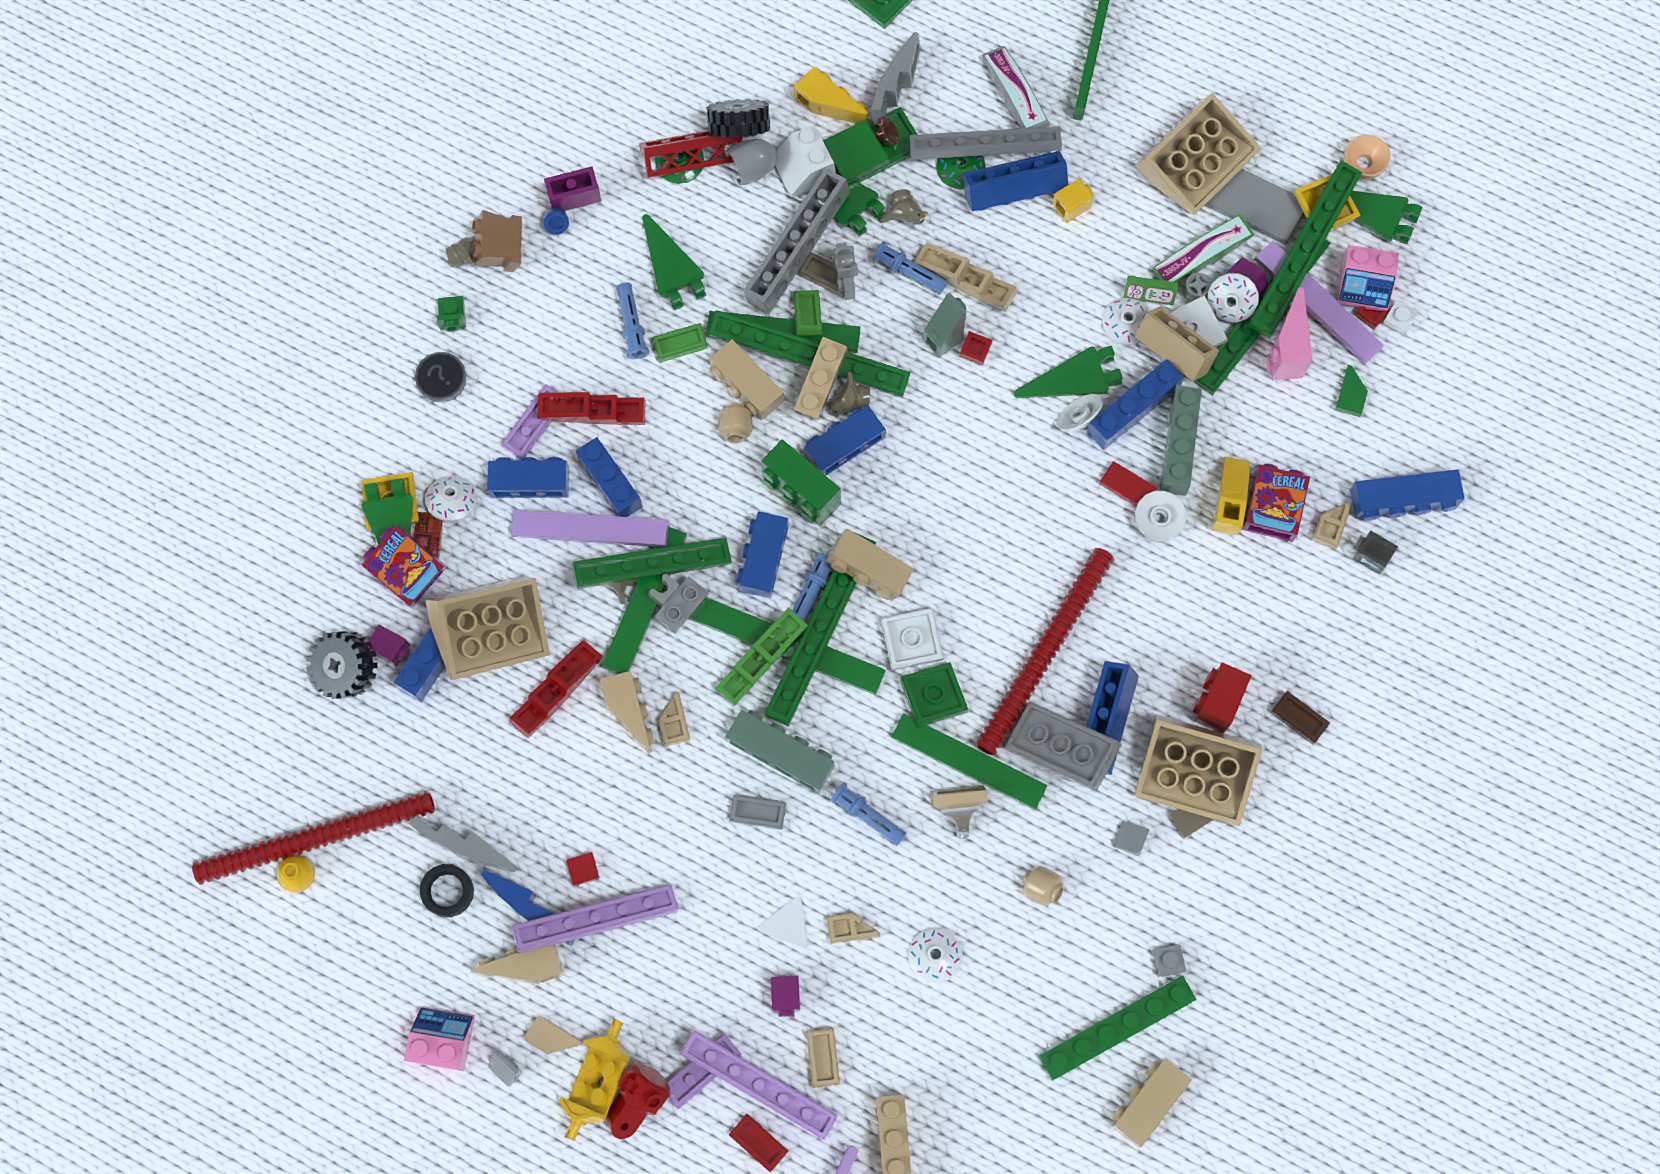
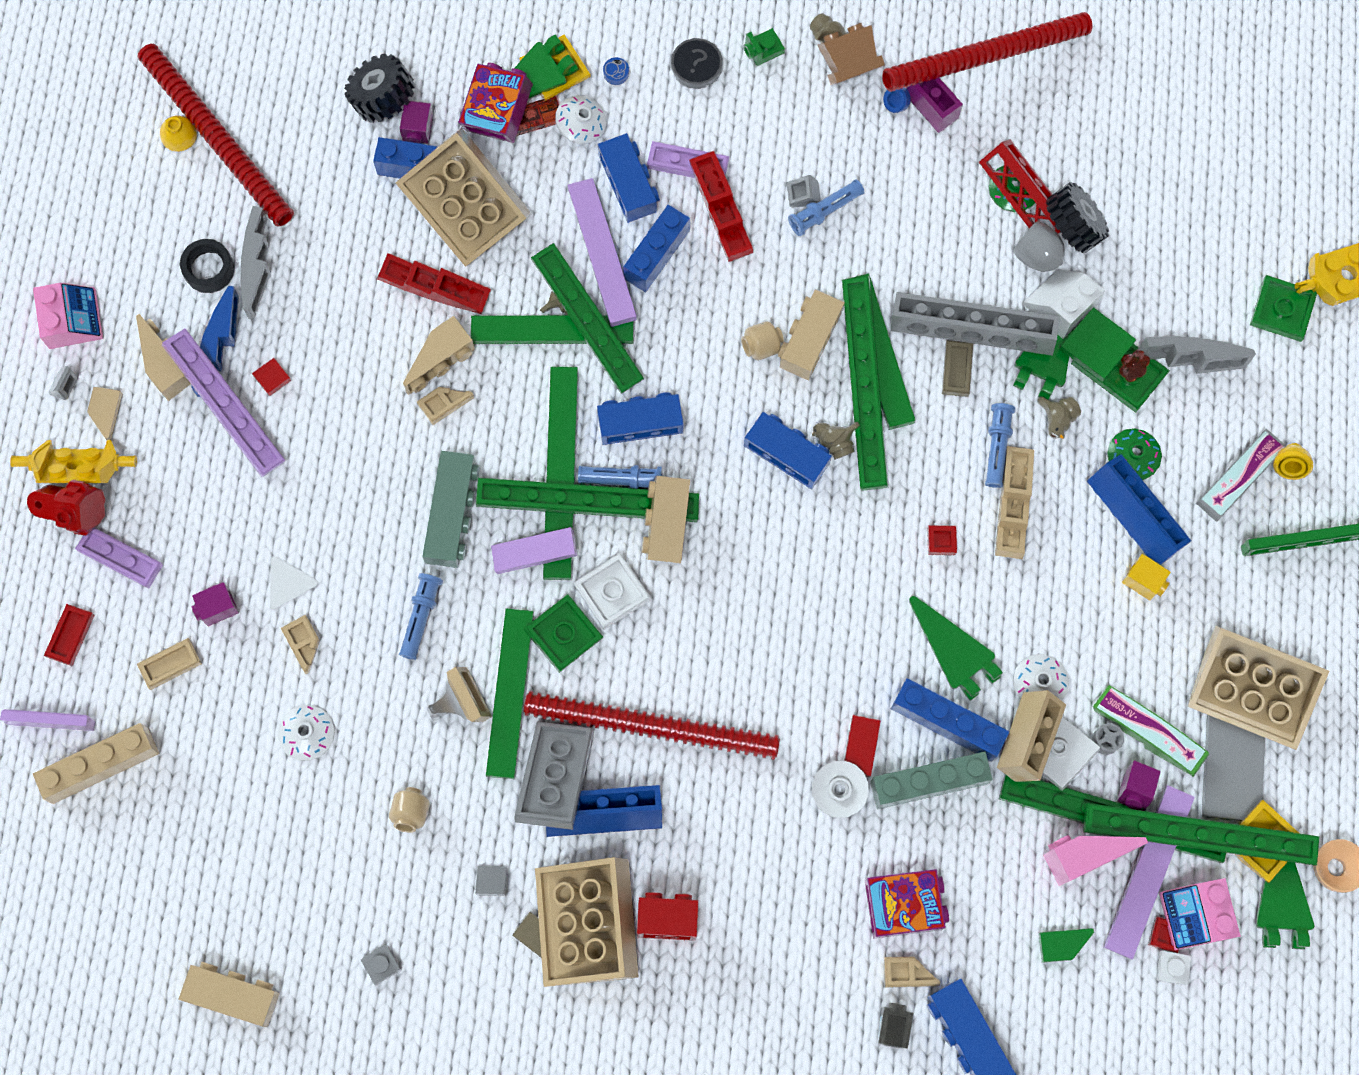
camera: 65 degrees right, 0 degrees up
(416, 450) = (616, 71): none -> blue tile
(551, 126) = (986, 51): none -> red piece
(607, 335) = (803, 191): none -> light grey slope
(671, 265) = (900, 221): green flag -> none
(677, 602) = (559, 357): light grey plate -> none
(679, 342) = (825, 260): bright green tile -> none
(757, 812) = (384, 513): light grey tile -> none
(759, 1085) = (121, 613): lavender tile -> none
(761, 657) = (535, 455): bright green slope -> none
(800, 483) = (722, 422): green brick -> none
(807, 312) = (907, 364): bright green tile -> none
(821, 378) = (839, 400): tan brick -> none
(825, 98) = (1142, 295): yellow slope -> none
(846, 268) = (963, 378): light grey plate -> none
(849, 691) = (534, 550): none -> lavender tile
(946, 325) = (946, 499): sand green slope -> none
(985, 142) = (1166, 465): light grey plate -> none
(1020, 45) = (1293, 462): none -> yellow brick
(1080, 412) = (915, 666): white dish -> none
(1117, 1028) = (295, 937): green plate -> none
(1150, 290) = (1083, 691): tile -> none
(1232, 496) = (894, 854): yellow slope -> none
(1234, 286) = (1119, 778): white dish -> none
(1300, 717) = (684, 1011): reddish brown tile -> none

